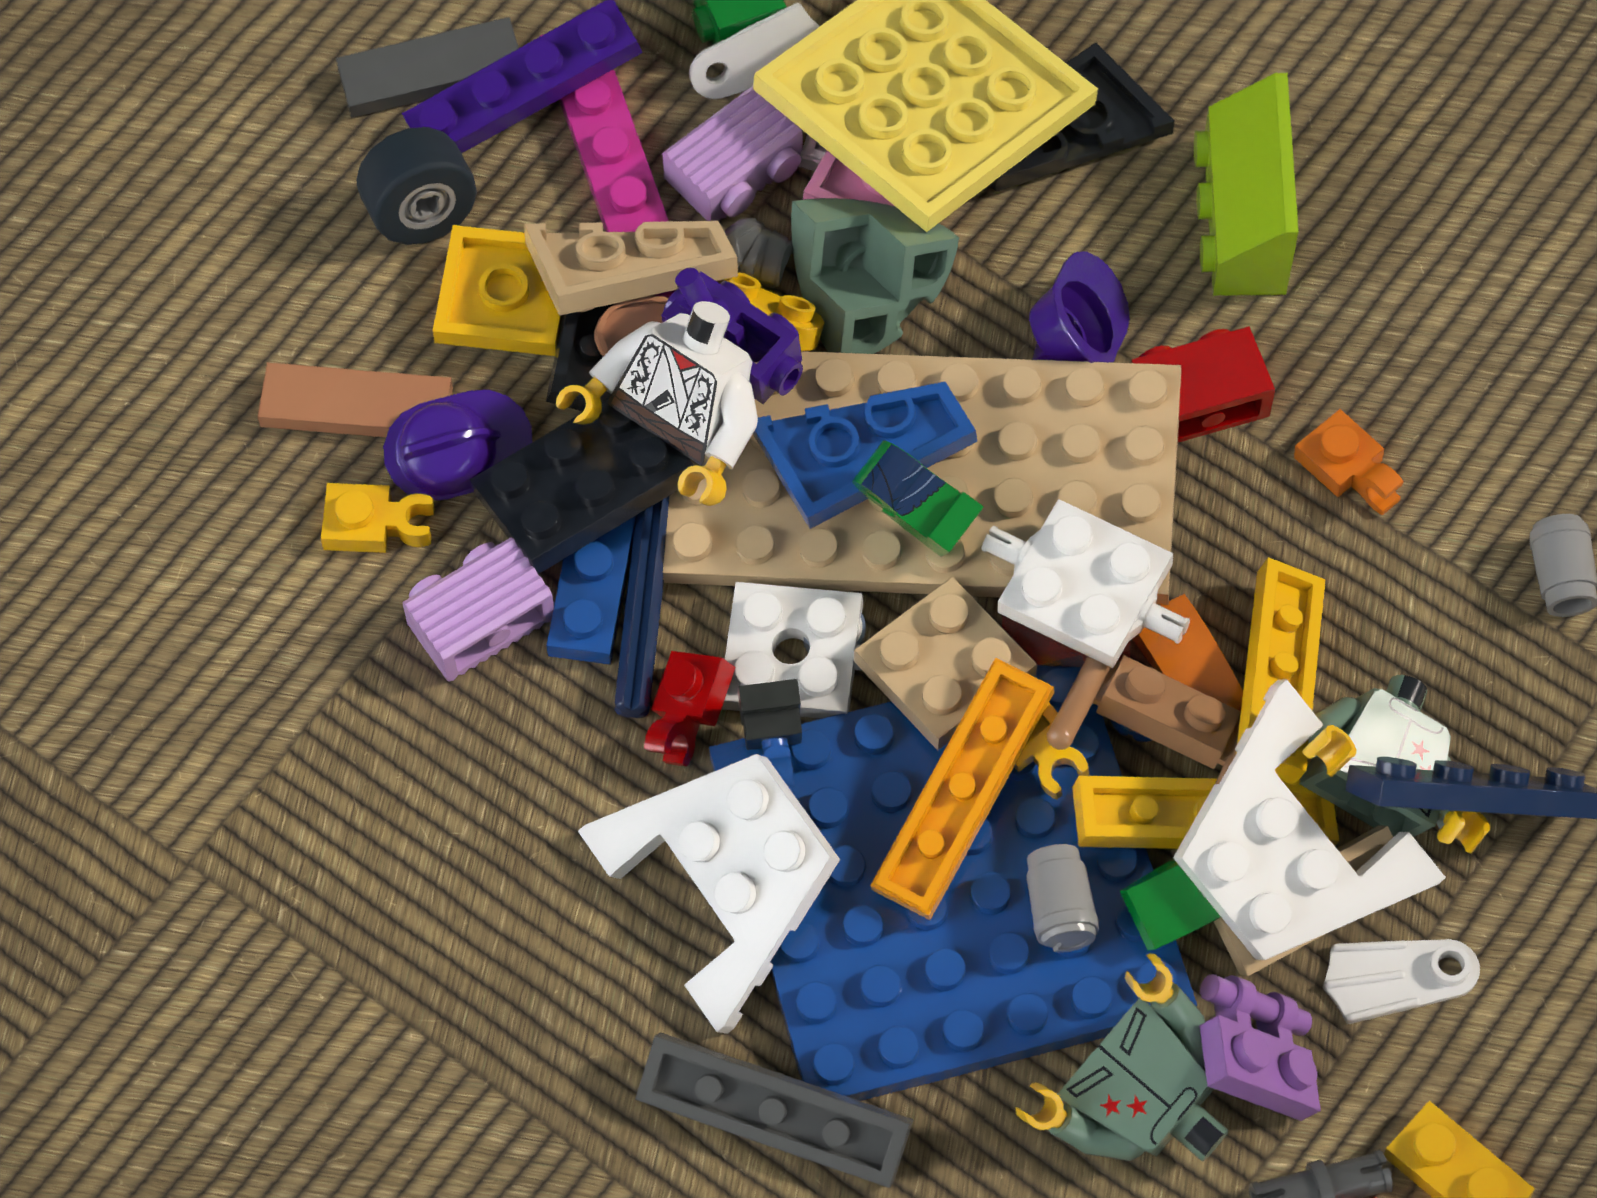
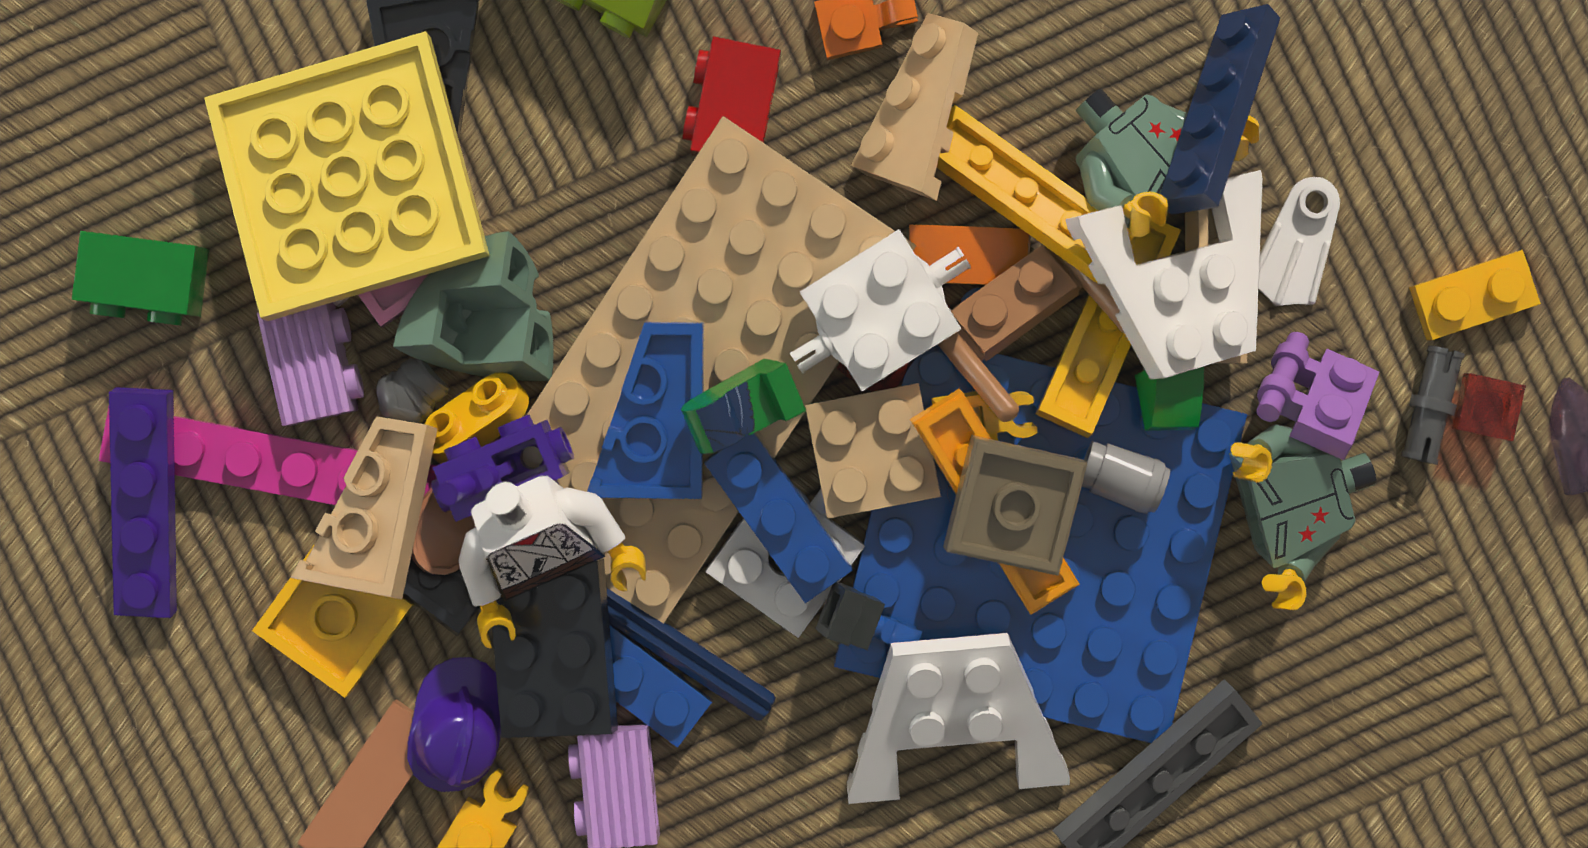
camera: 65 degrees left, 25 degrees up
(416, 185) = (200, 645): black wheel -> none
(421, 66) = (74, 568): dark grey tile -> none
(686, 698) = (787, 659): red plate -> none
(749, 52) = (219, 288): white piece -> none
(831, 603) = (778, 516): none -> blue plate
(971, 796) = (1015, 505): none -> dark tan tile
(1081, 314) = (622, 162): dark purple piece -> none
(1284, 541) = (914, 115): none -> tan wing

